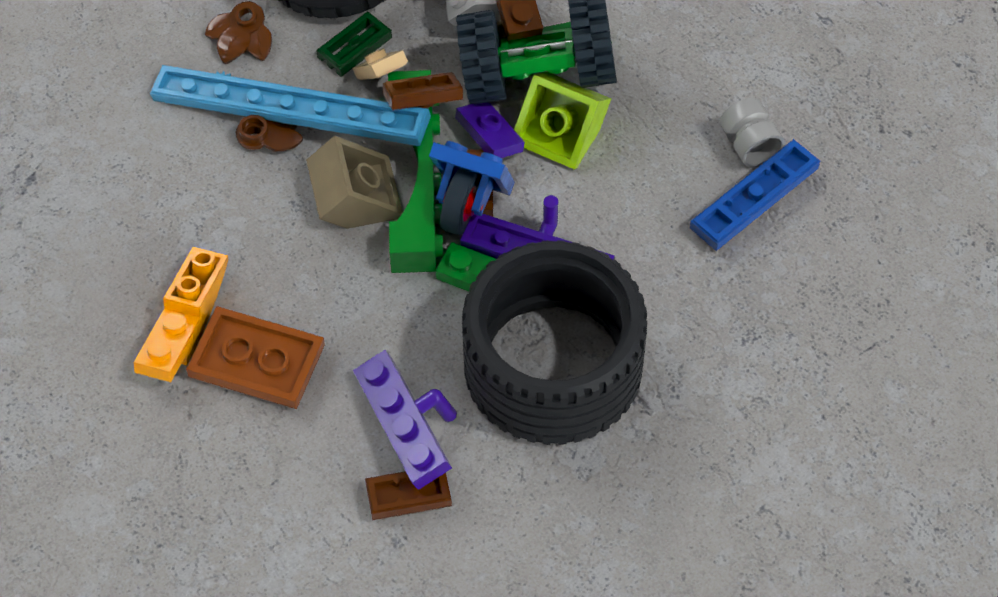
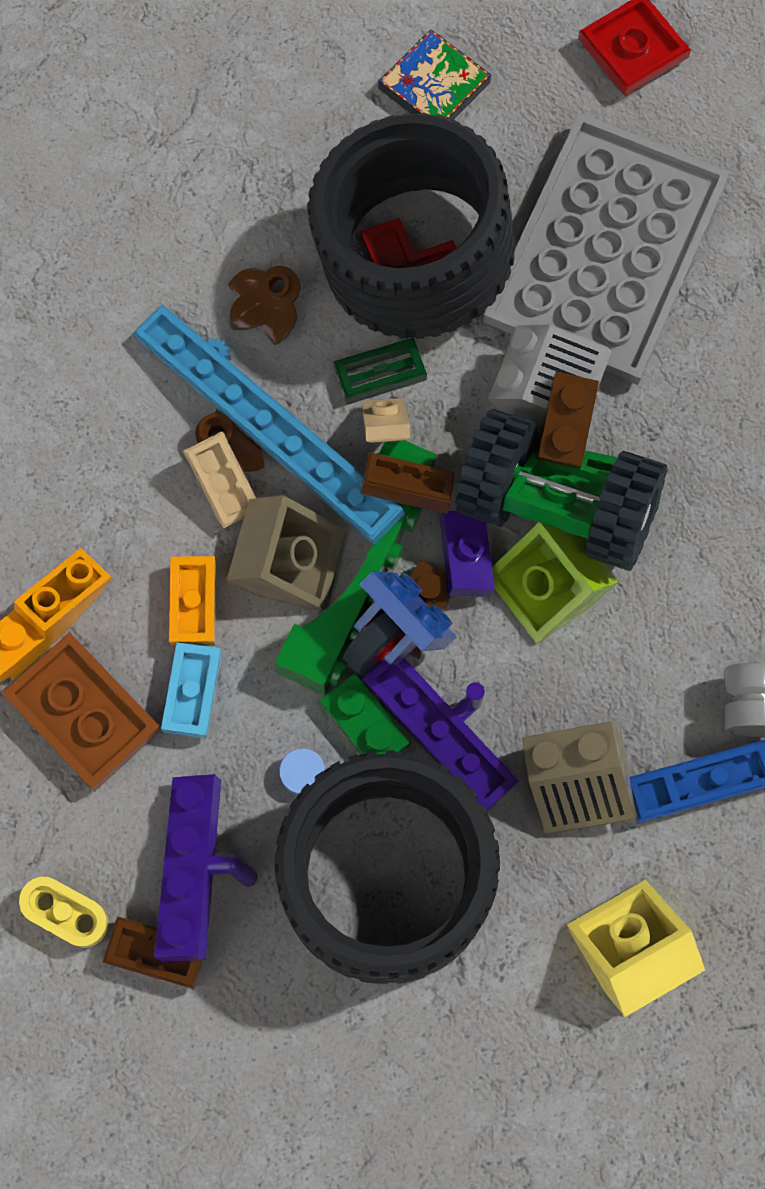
camera: 25 degrees right, 15 degrees up
(275, 158) = (220, 478): none -> tan plate
(300, 248) = (192, 600): none -> light orange plate
(321, 494) = (64, 913): none -> light yellow plate
(334, 306) = (191, 690): none -> medium azure plate
(447, 325) = (299, 769): none -> light blue tile
(657, 231) = (579, 777): none -> dark tan slope
(764, 324) = (637, 947): none -> light yellow slope

